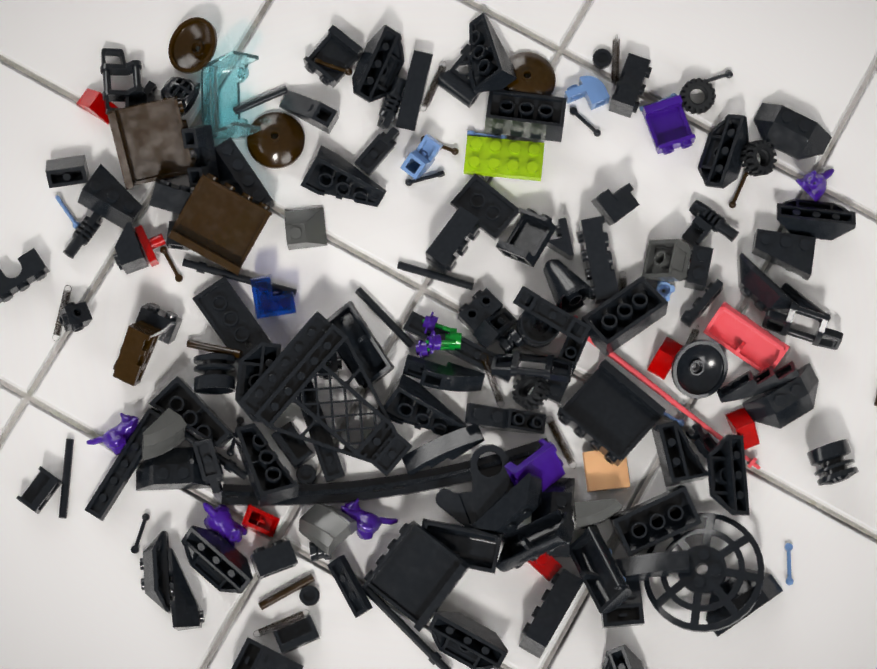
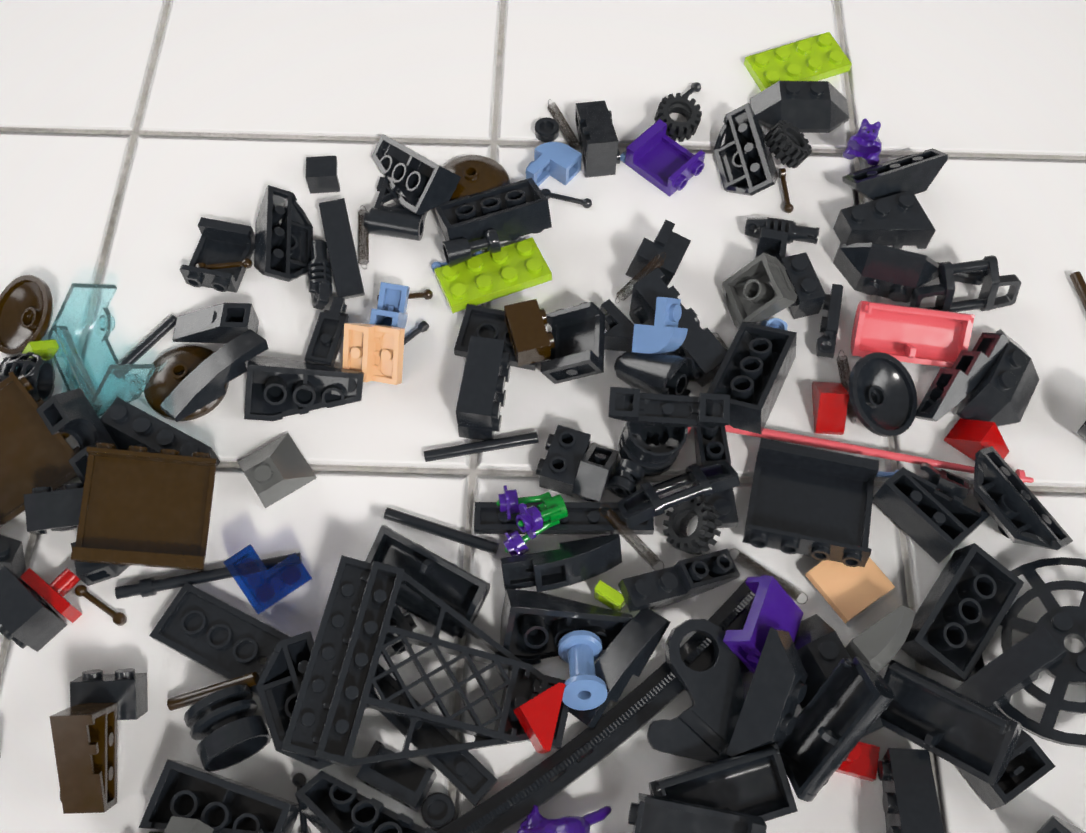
camera: 30 degrees left, 15 degrees down
(195, 76) = (43, 348): none -> lime tile
(295, 149) = (208, 378): none -> black slope
(382, 454) = (541, 716): none -> red slope
(399, 180) = (375, 351): none -> light nougat slope
(414, 451) = (583, 688): none -> medium blue piece
(428, 24) = (322, 174): none -> black panel
(459, 407) = (609, 596): none -> lime tile
(488, 134) = (461, 250): none -> black piece
(500, 216) = (528, 332): none -> dark brown brick
(580, 261) = (664, 335): none -> medium blue brick
(584, 214) = (649, 264): none -> dark brown piece
(816, 89) = (798, 61): none -> lime plate

